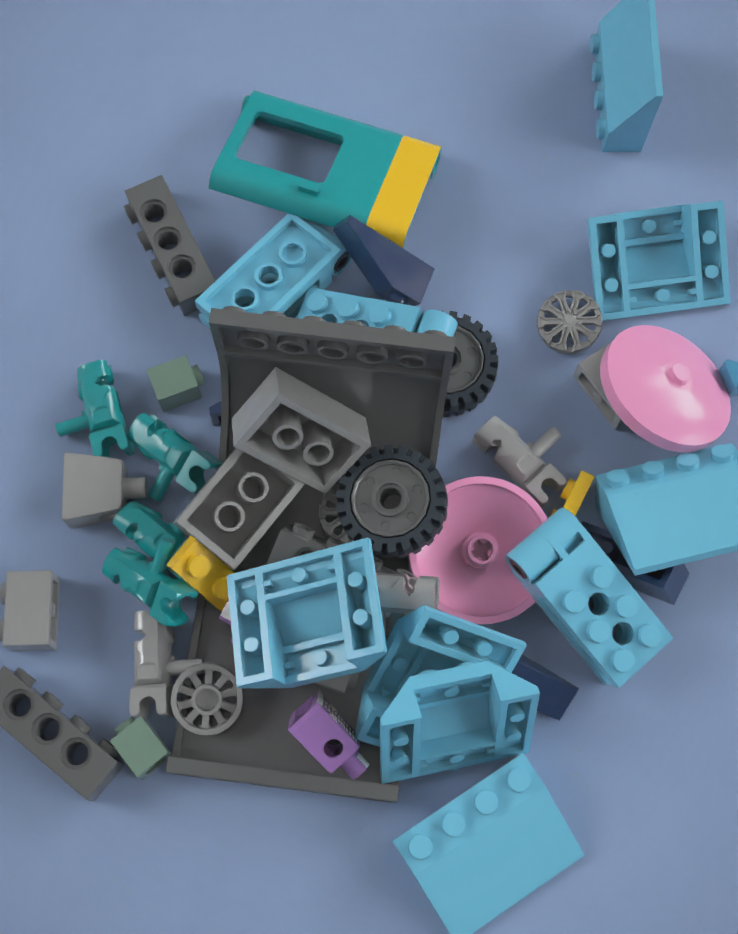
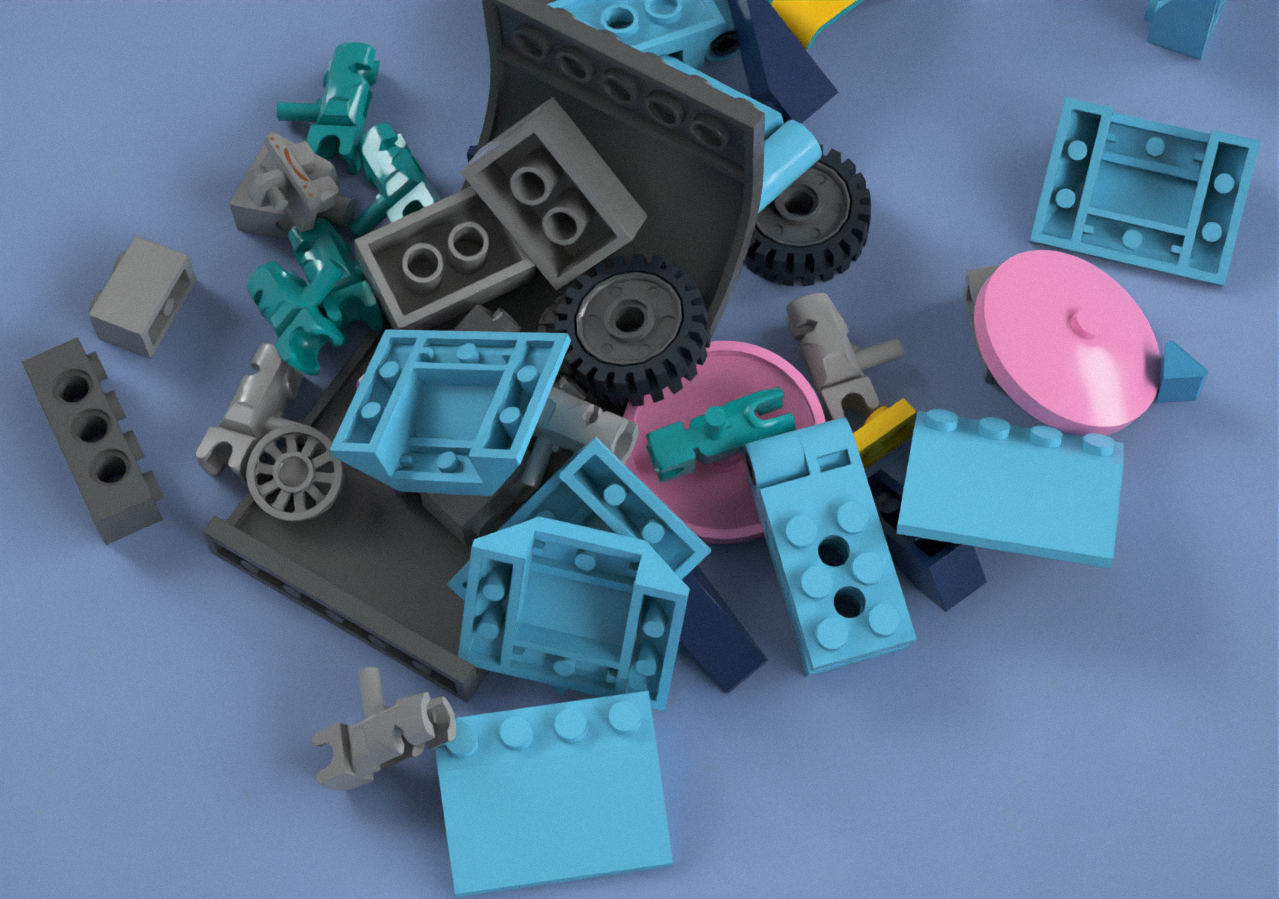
camera: 30 degrees right, 10 degrees down
(99, 492) = (284, 182): none -> light grey hips
(140, 746) = (188, 498): sand green brick -> none
(176, 383) = (447, 109): sand green brick -> none
(202, 571) = (358, 316): yellow plate -> none
(319, 722) = (406, 550): medium lavender torso -> none
(365, 865) = (384, 734): none -> light grey piece
(483, 552) = (716, 433): none -> teal piece
(569, 322) = (988, 225): light grey wheel -> none

